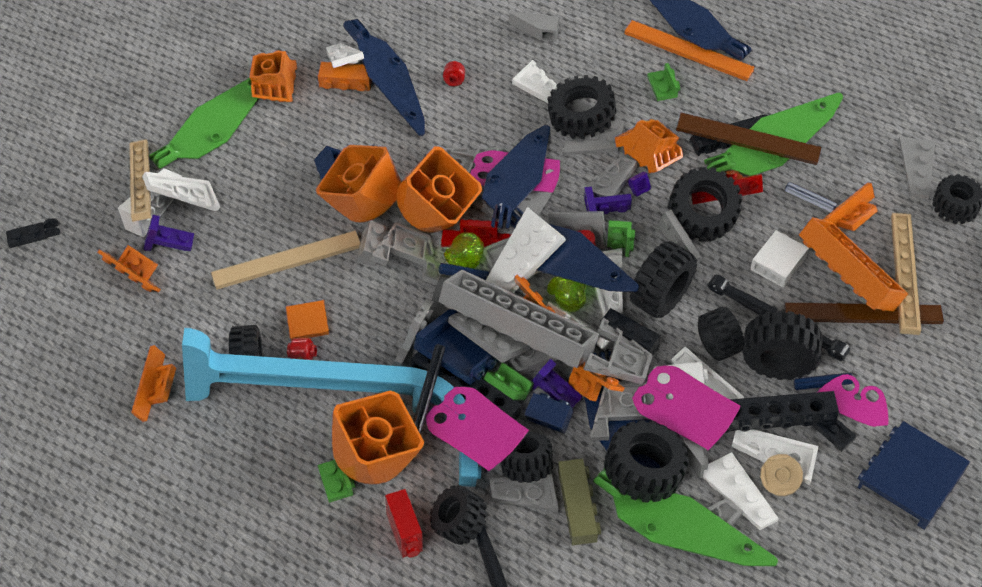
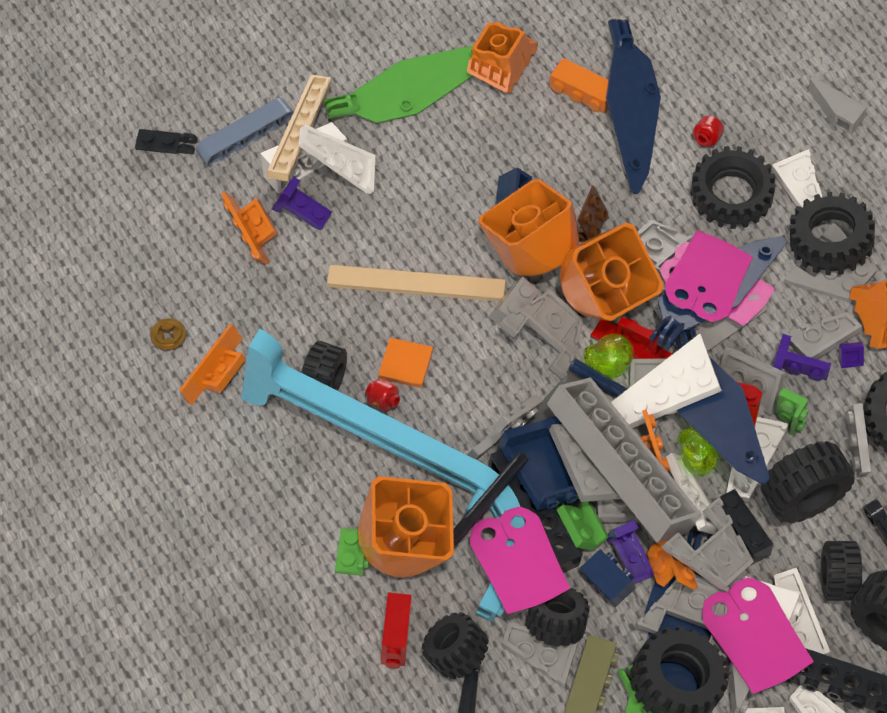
camera: 25 degrees right, 5 degrees up
(94, 201) = (243, 131): none -> sand blue beam
(97, 369) = (168, 325): none -> pearl gold gear
(342, 54) = (590, 59): white wing -> none
(400, 159) = (591, 216): none -> reddish brown hinge
(492, 87) = (733, 164): none -> black tyre
(505, 160) = (715, 267): none -> dark pink piece

